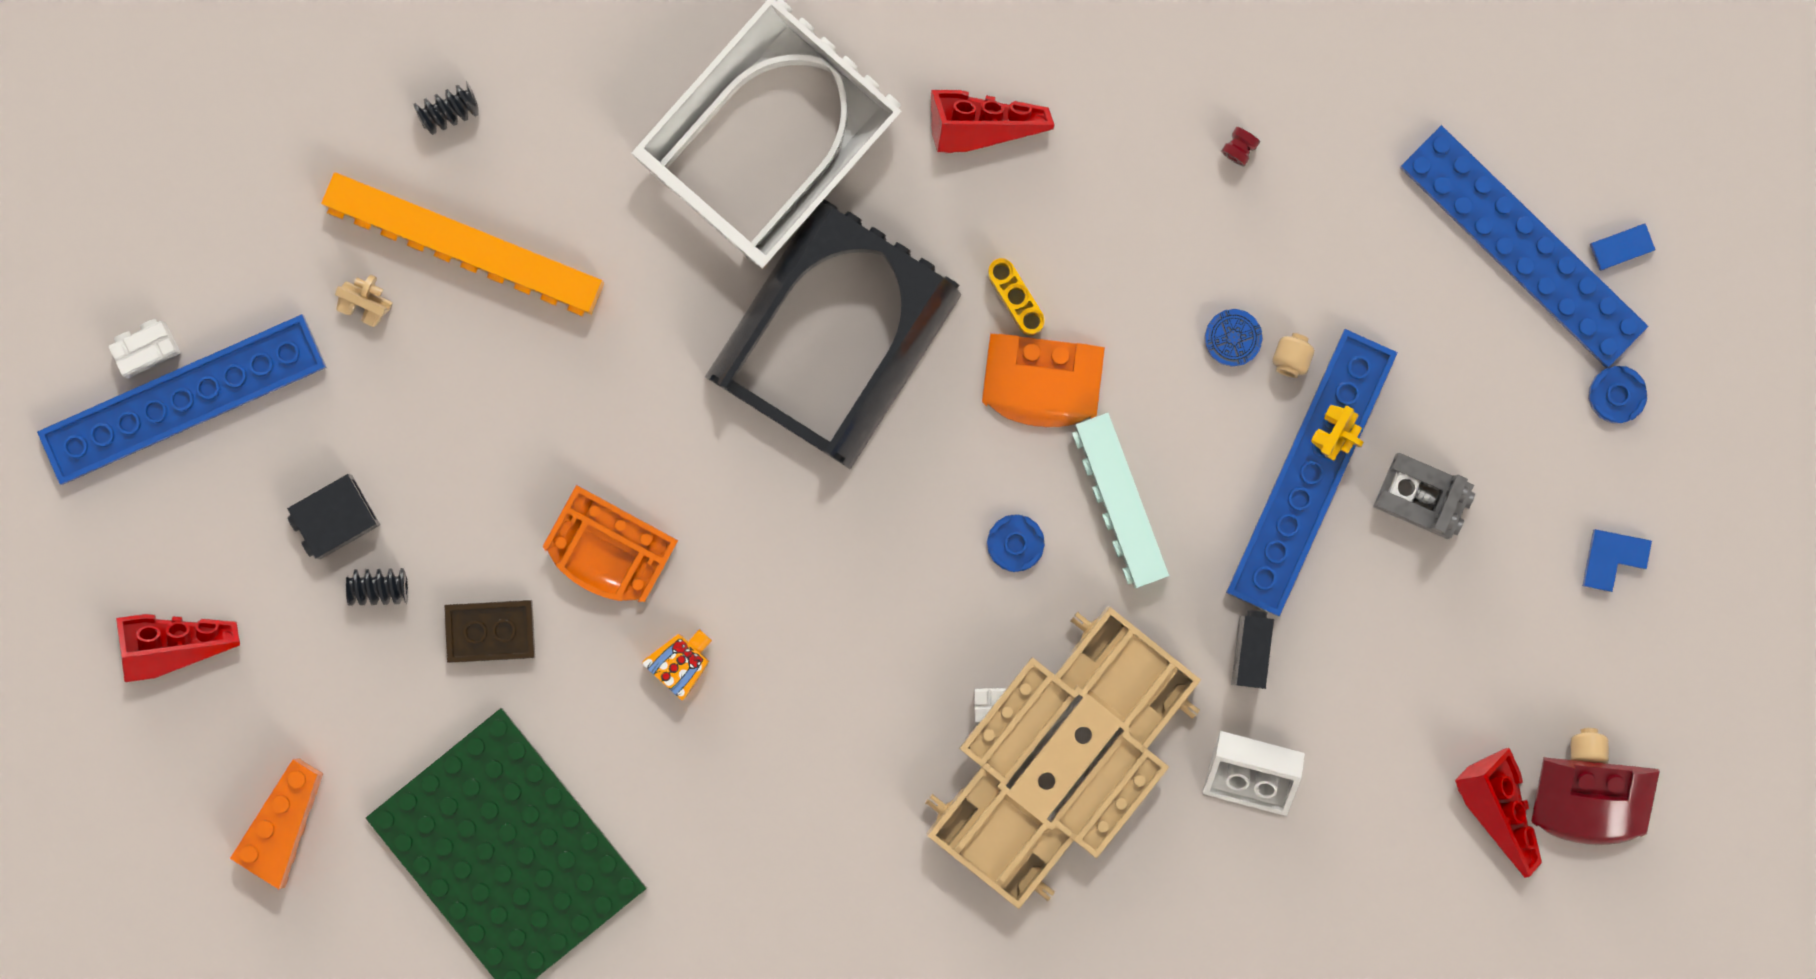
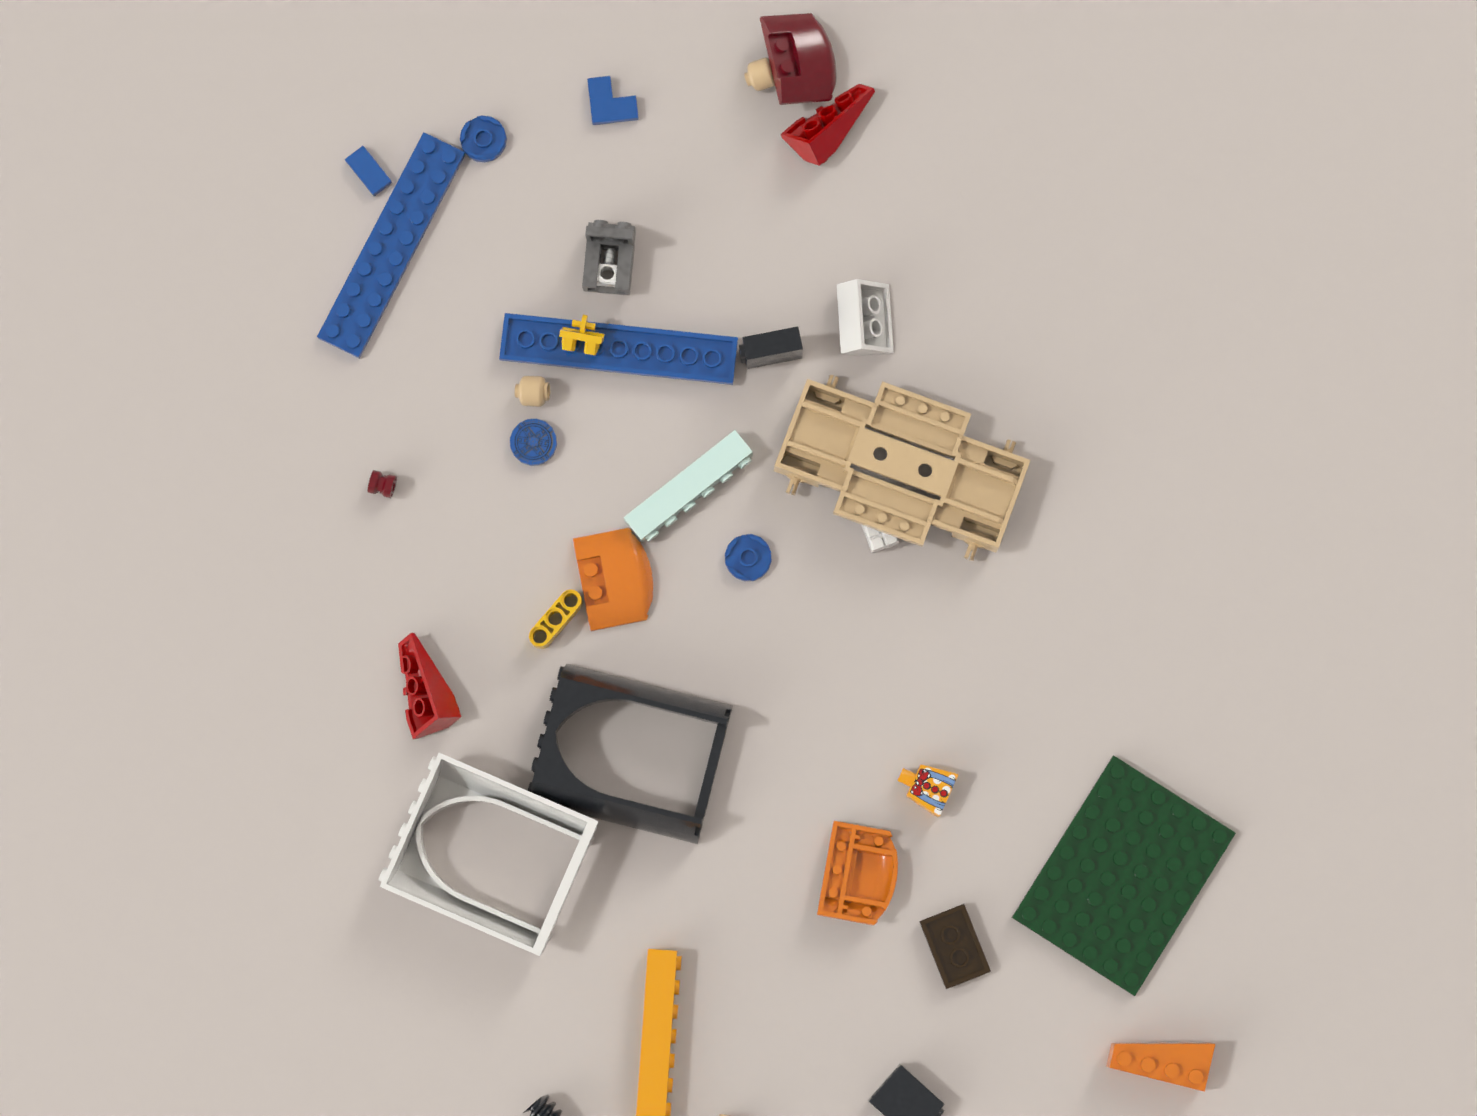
camera: 110 degrees left, 5 degrees down
(377, 587) = (950, 1048): black piece -> none

